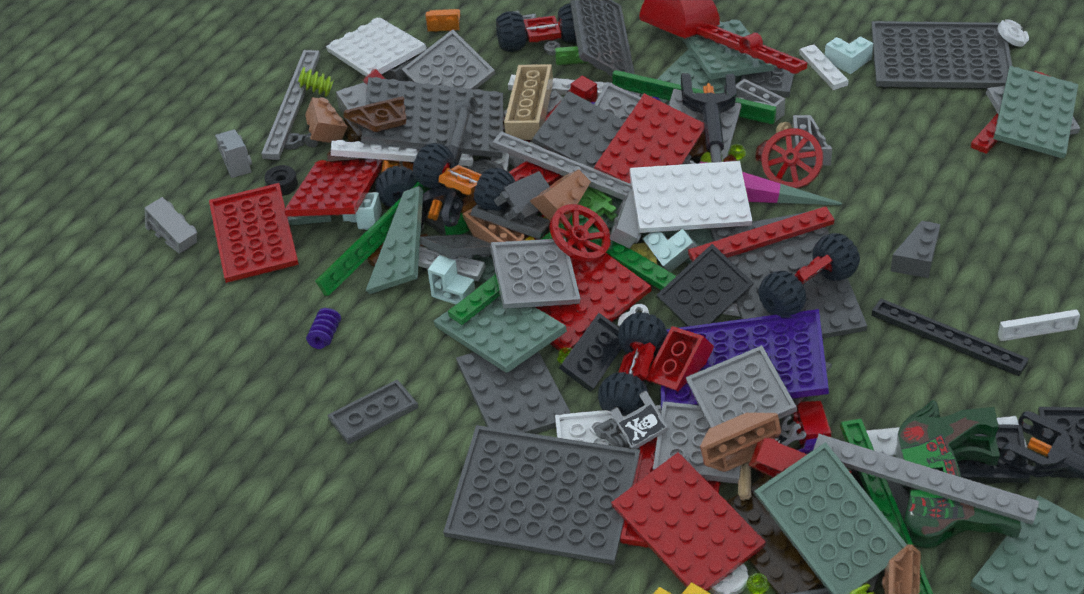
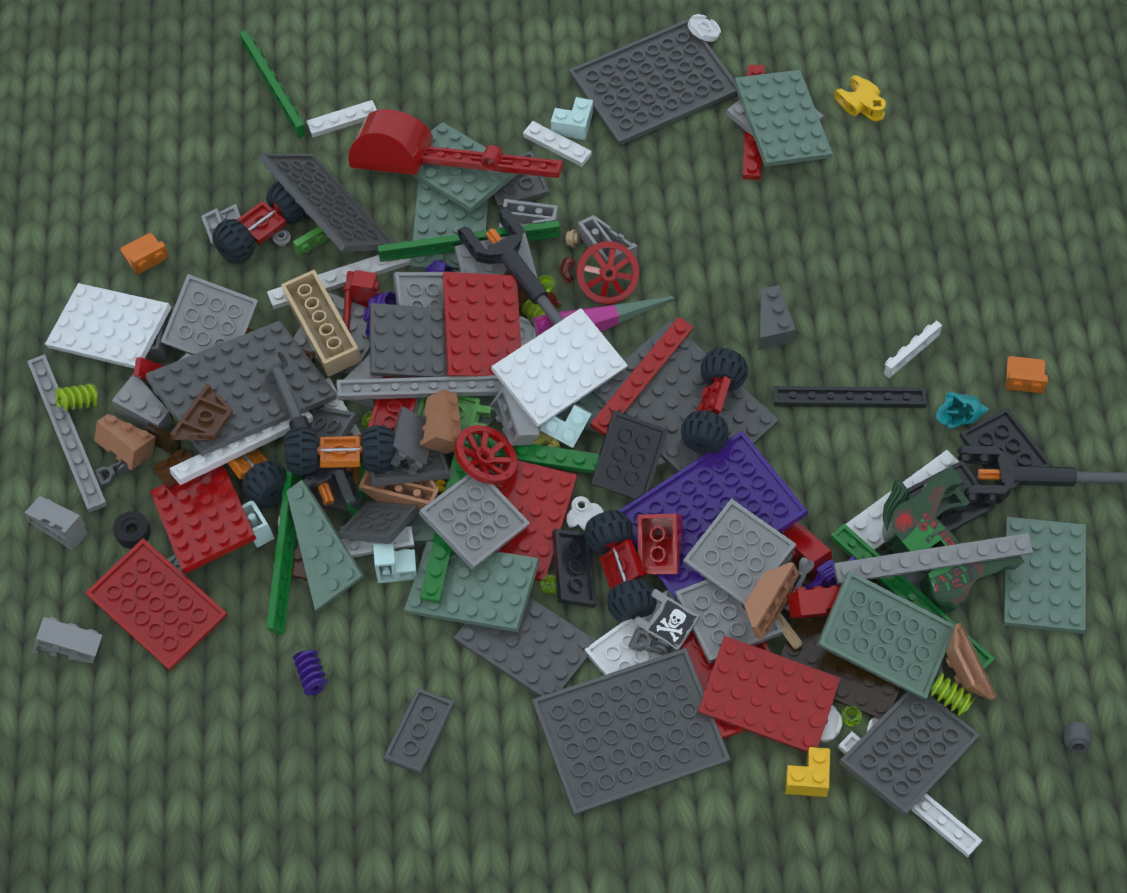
camera: 35 degrees left, 15 degrees up
(1047, 386) = (959, 410): none -> teal head

